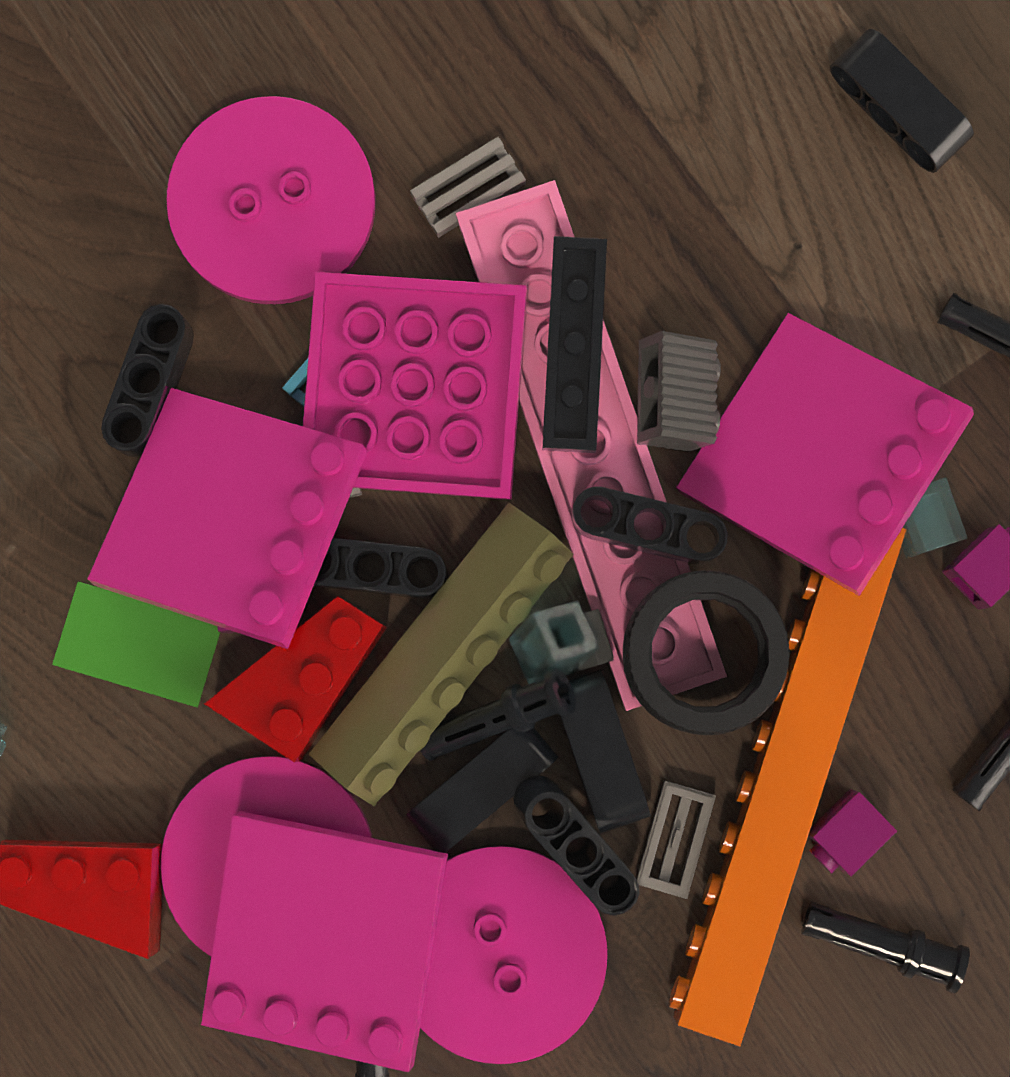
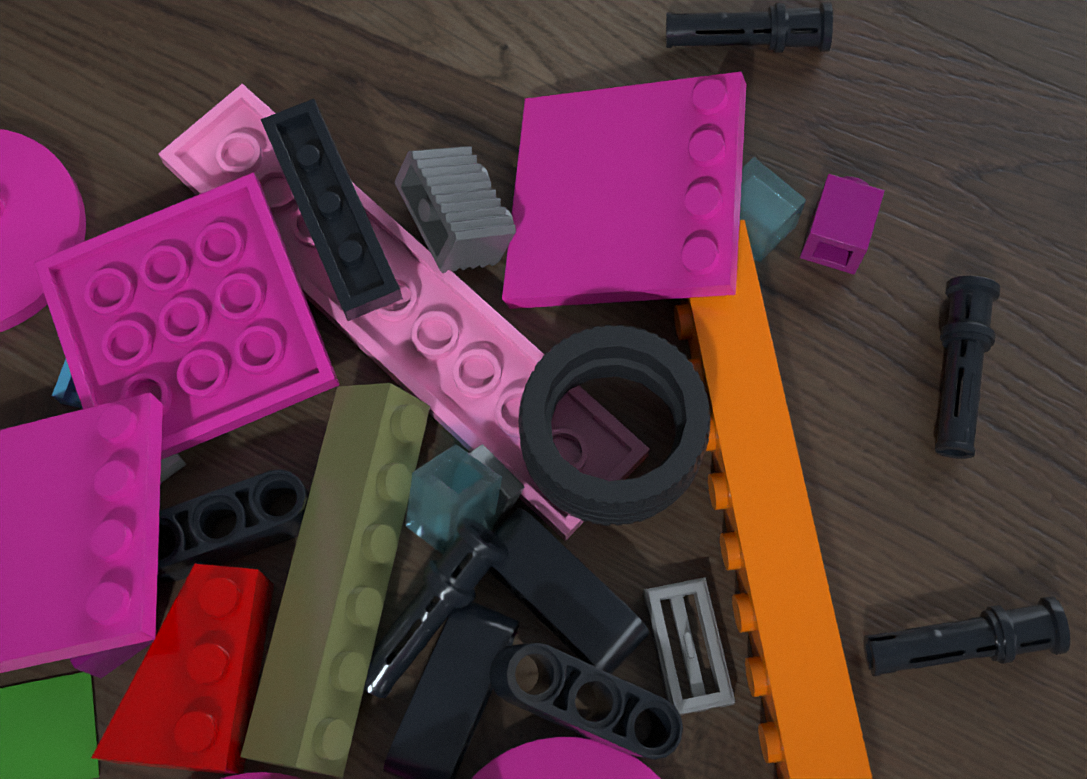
camera: 30 degrees left, 15 degrees down
(457, 170) = (155, 129): light grey tile -> none
(674, 518) = (460, 324): black beam -> none
(849, 834) = (863, 542): magenta brick -> none

